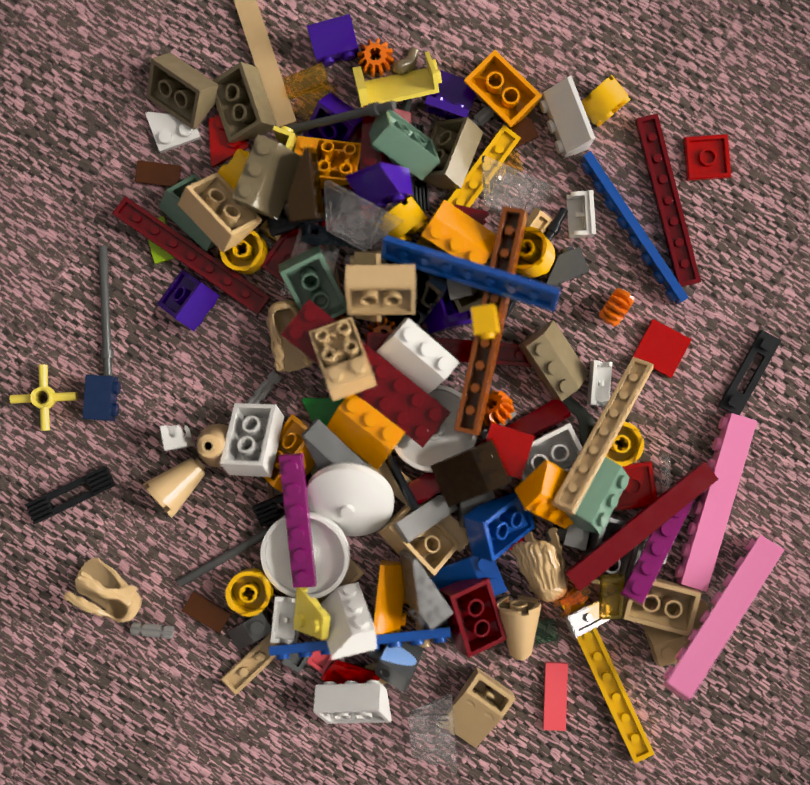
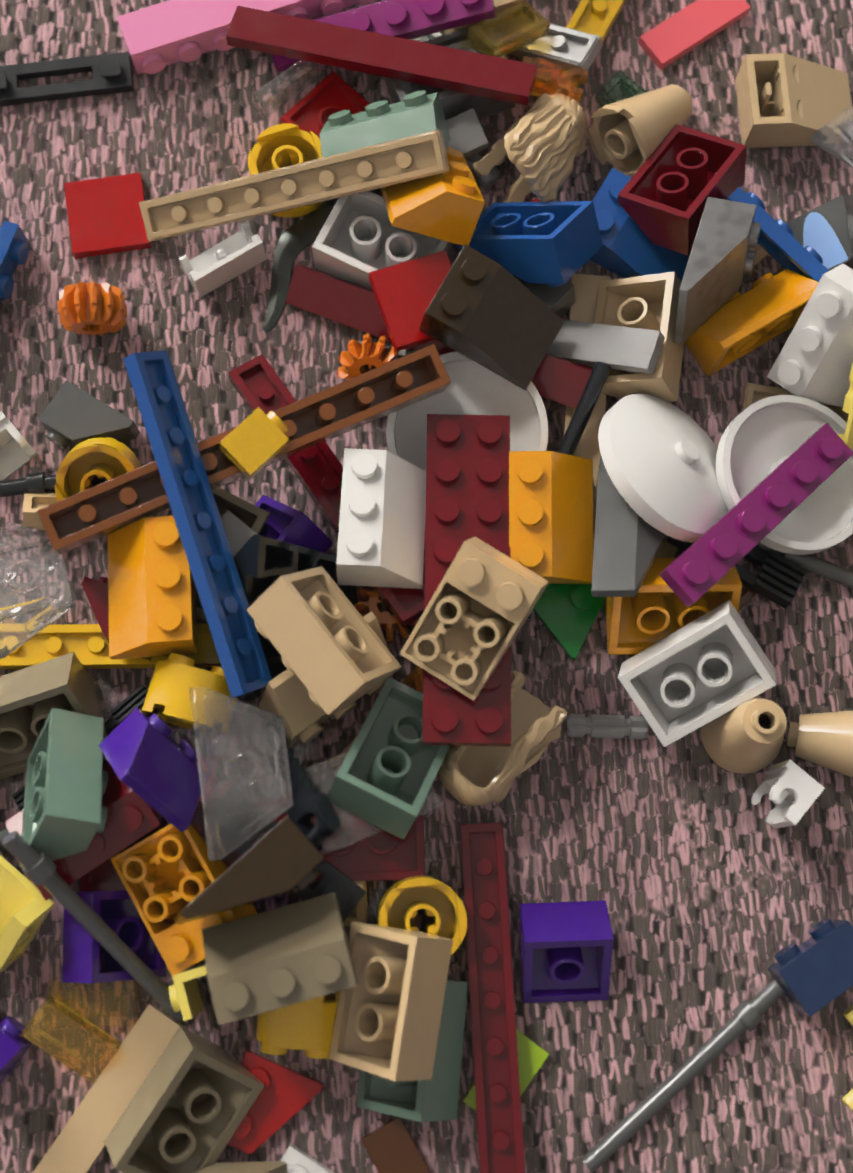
camera: 135 degrees left, 10 degrees down
(554, 361) = (239, 337): dark tan slope -> none

